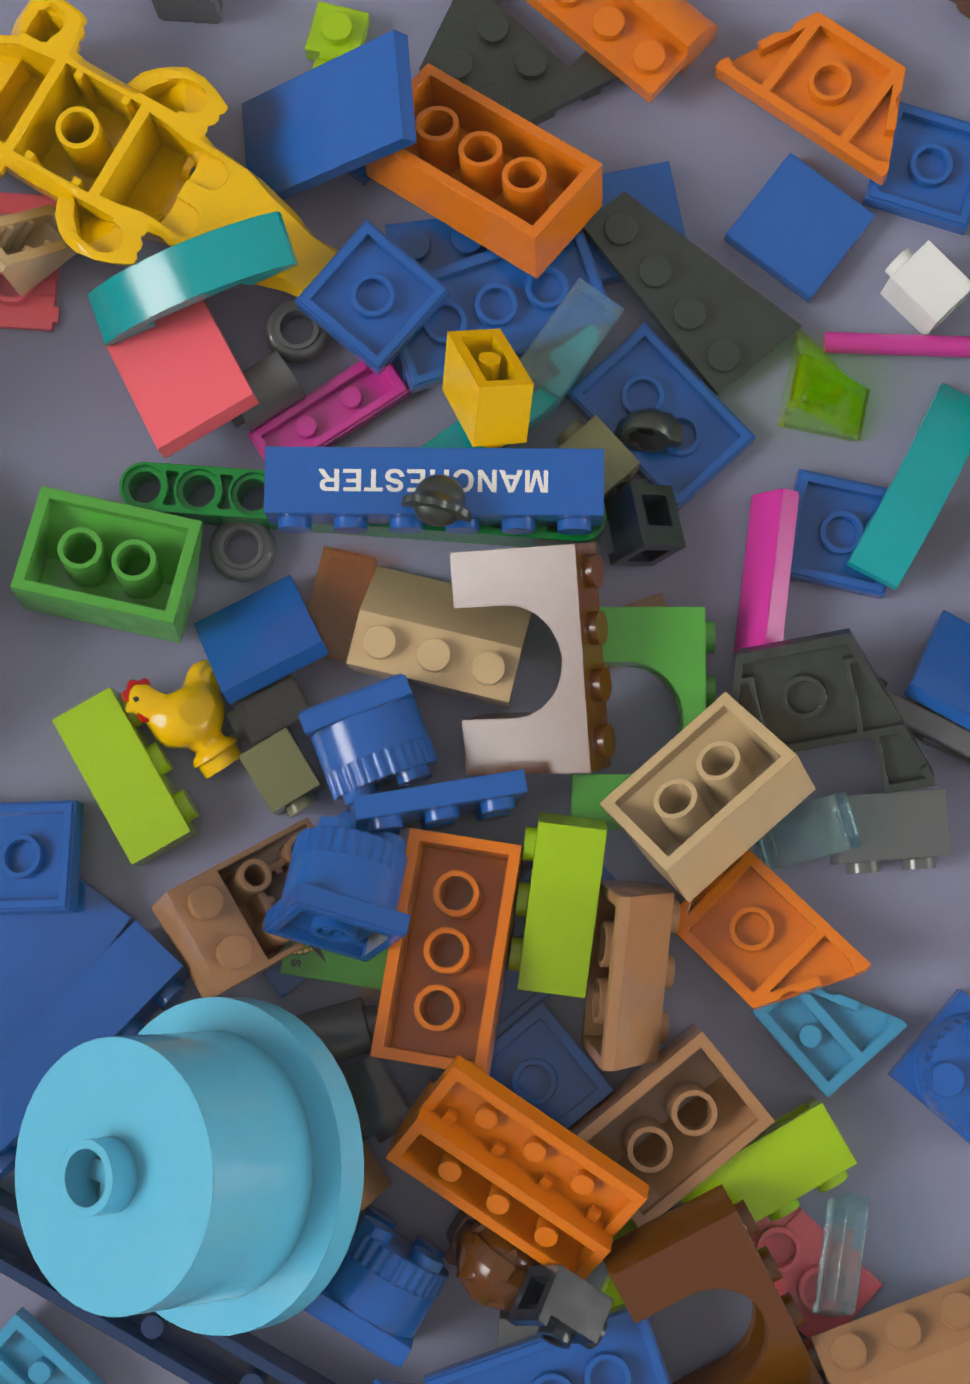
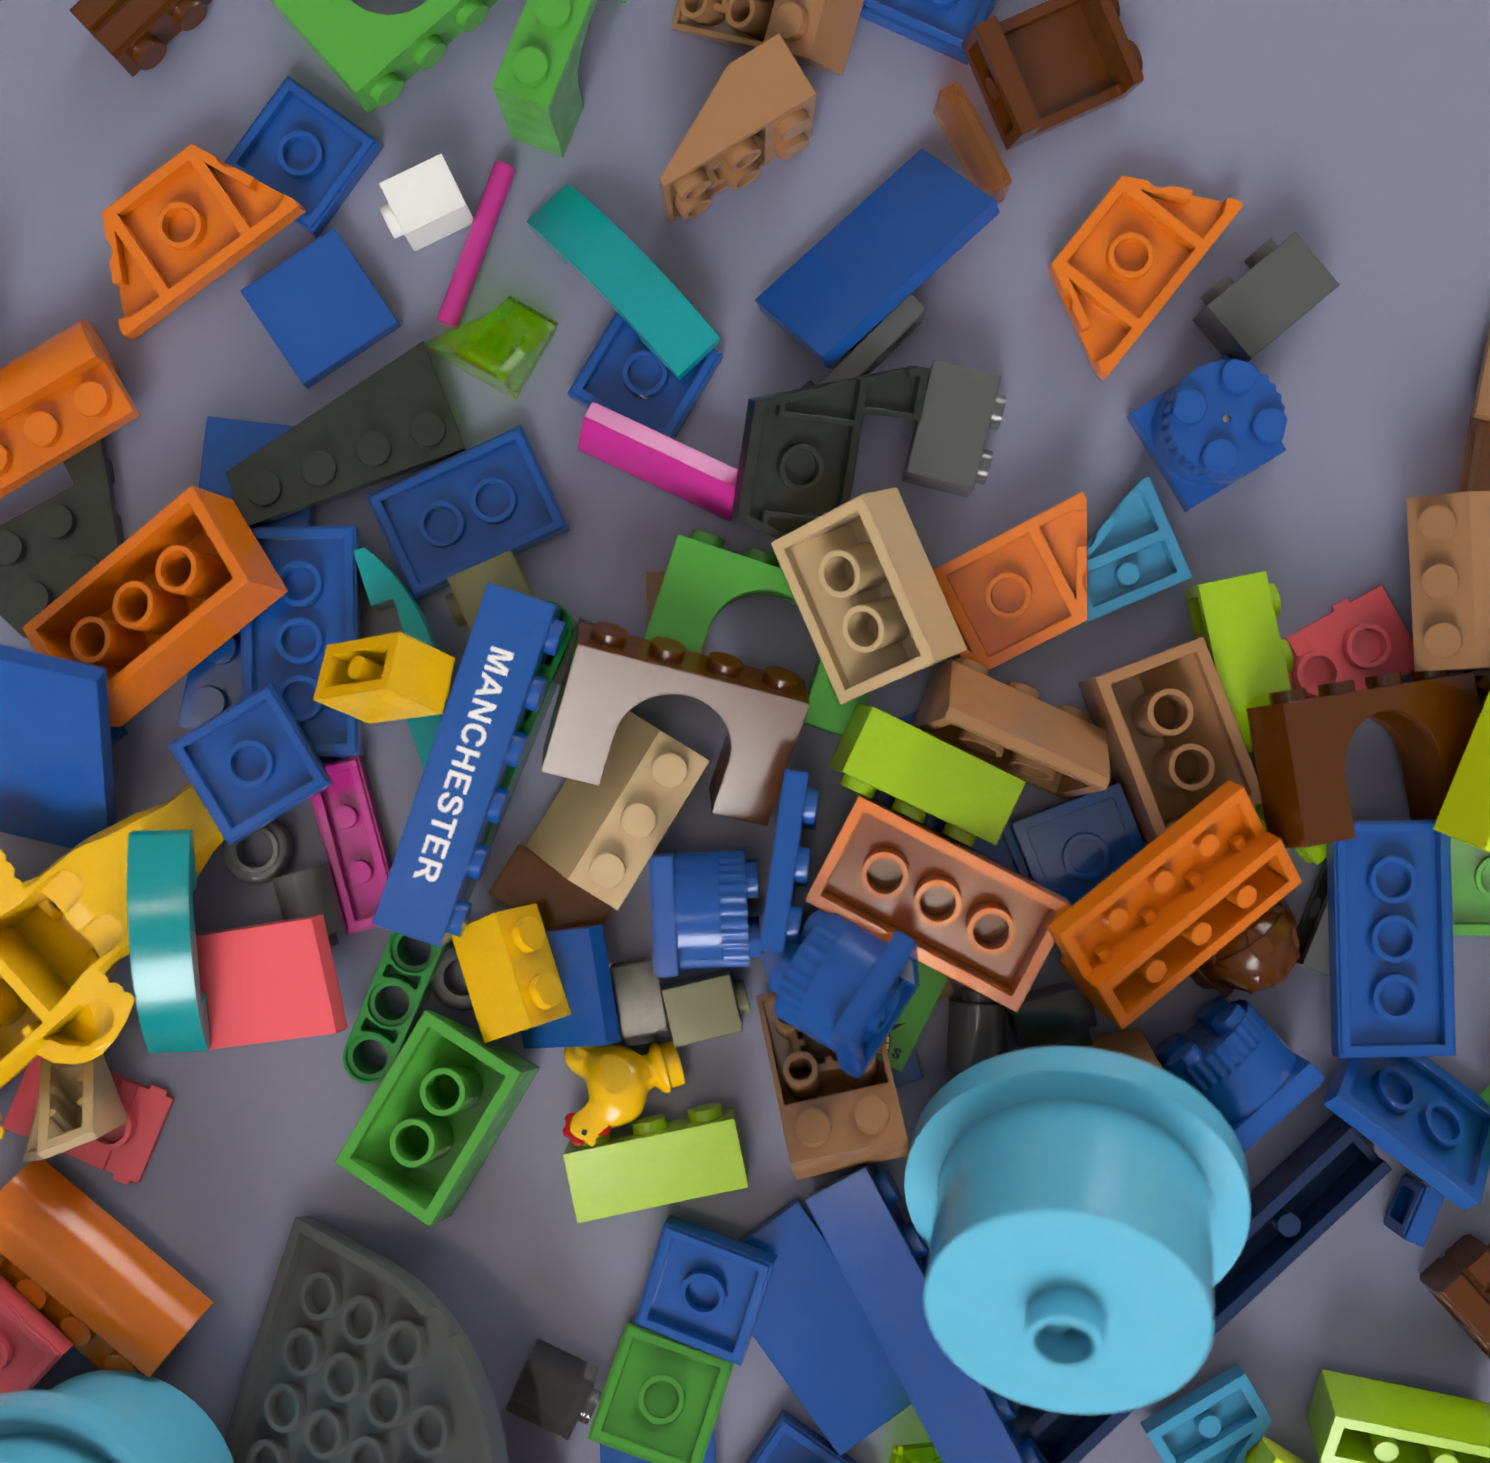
camera: 80 degrees left, 5 degrees up
(259, 586) = (510, 972): none -> yellow brick
(438, 501) = (487, 766): pearl dark grey piece -> none
(561, 1306) = (1318, 904): black brick -> none
(570, 338) = (361, 577): clear light blue tile -> none
(643, 523) = (572, 566): black brick -> none
(649, 430) = (480, 528): pearl dark grey piece -> none
(810, 832) = (935, 504): clear light blue tile -> none
(841, 1255) = (1346, 615): clear light blue tile -> none

